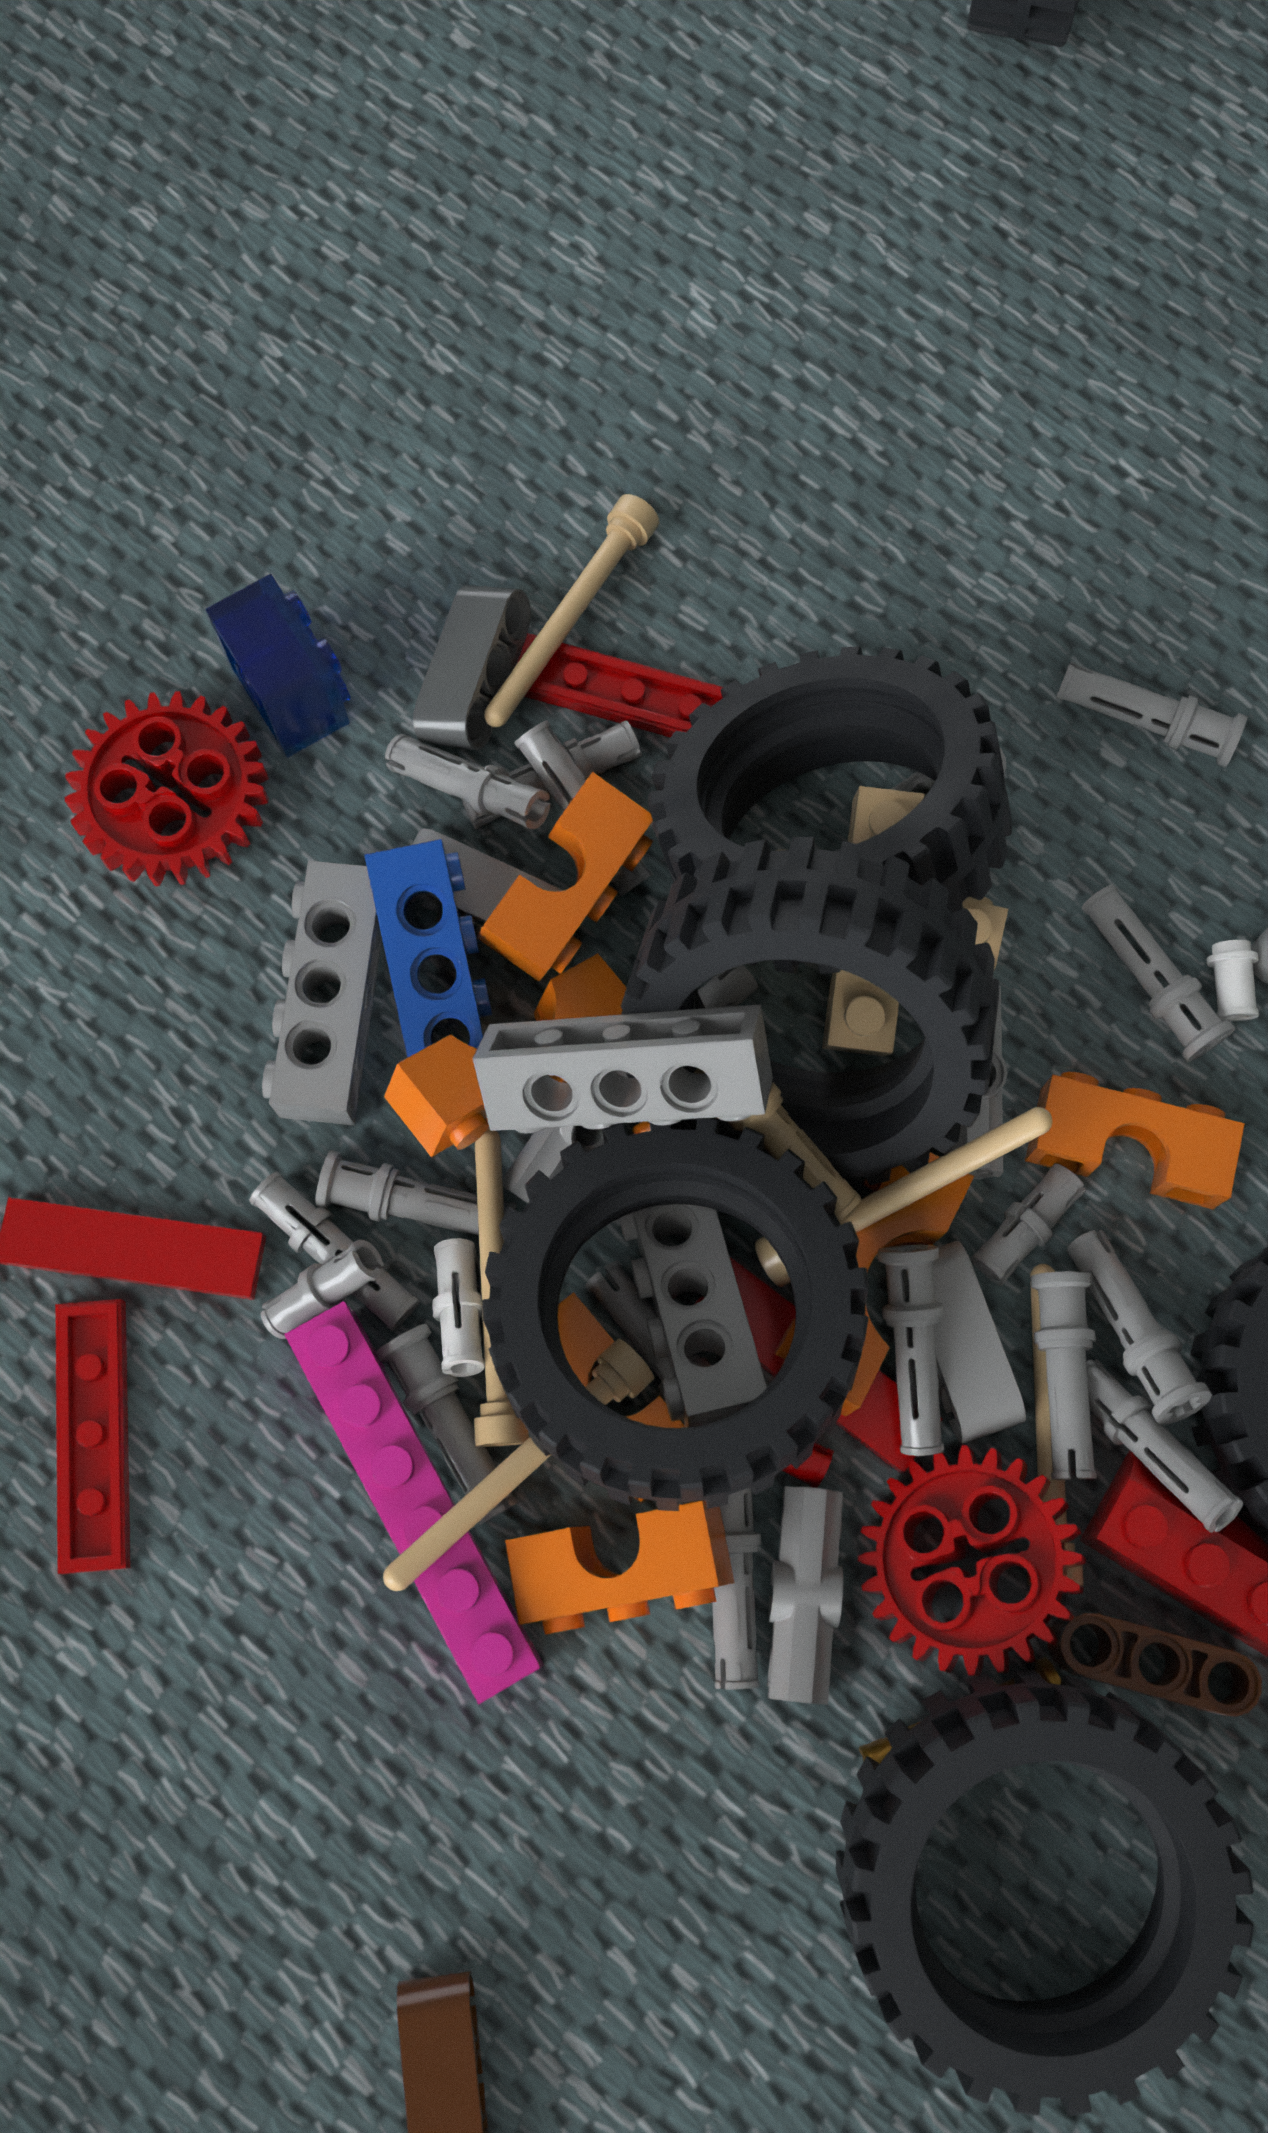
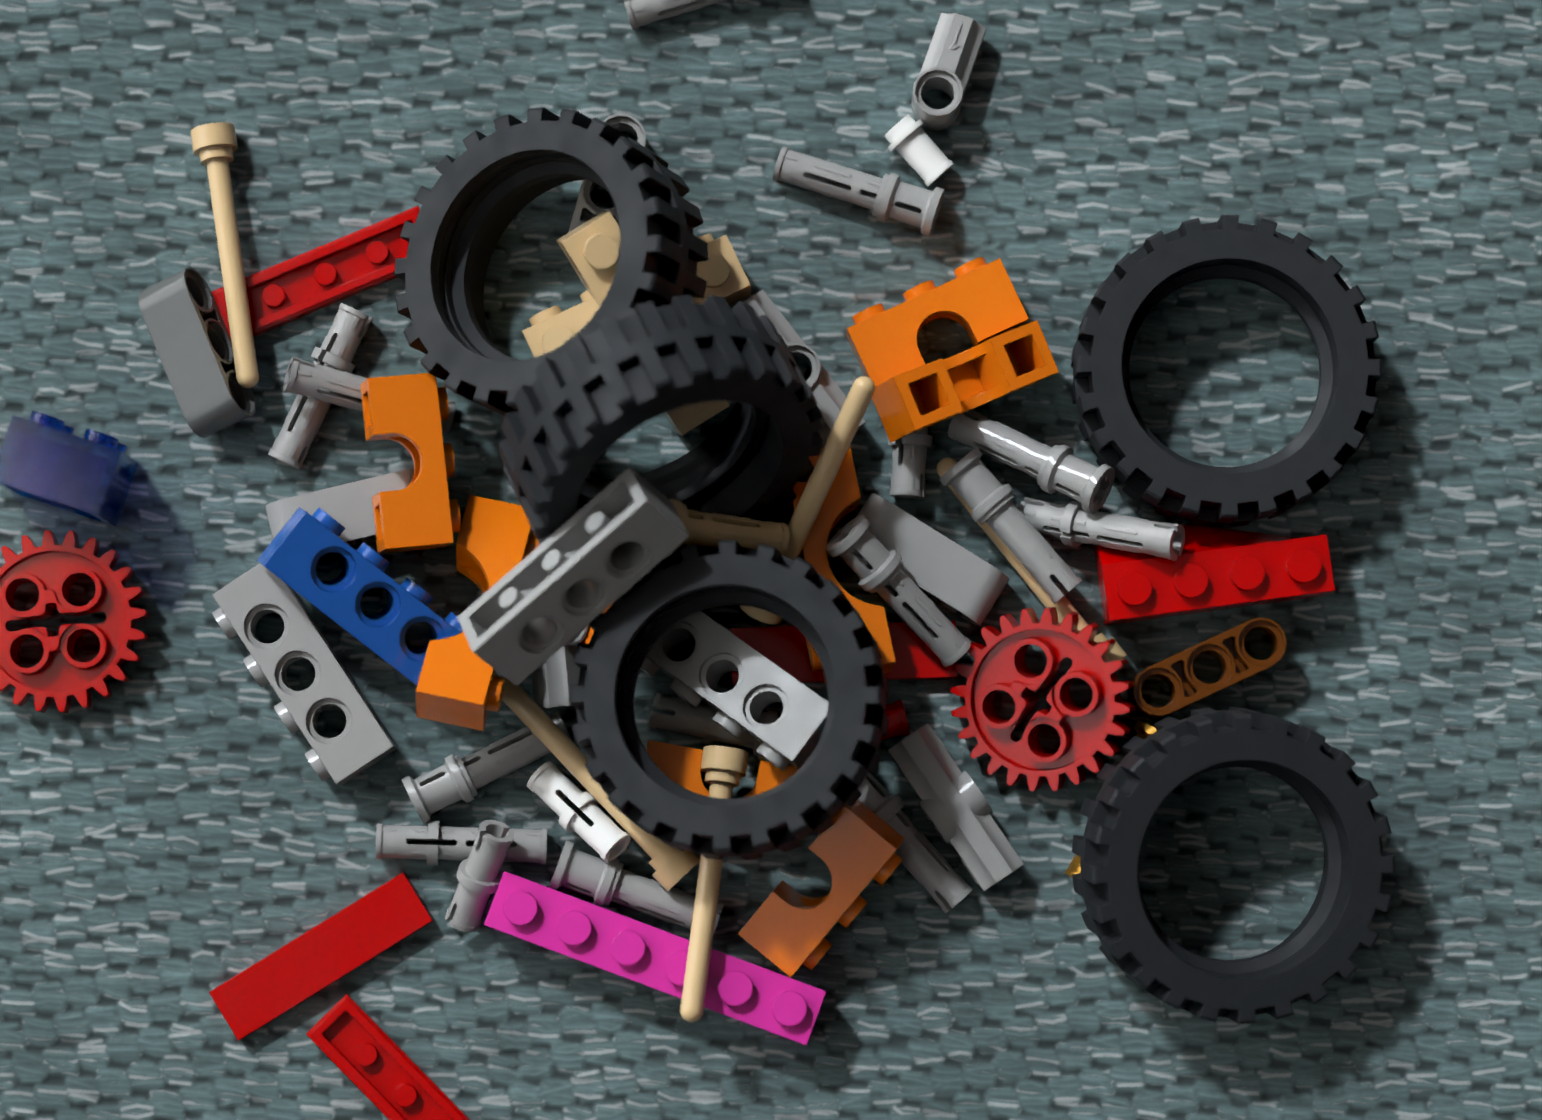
camera: 40 degrees left, 10 degrees up
(485, 788) = (291, 440): light grey pin -> none
(1098, 1196) = (963, 381): none -> orange arch

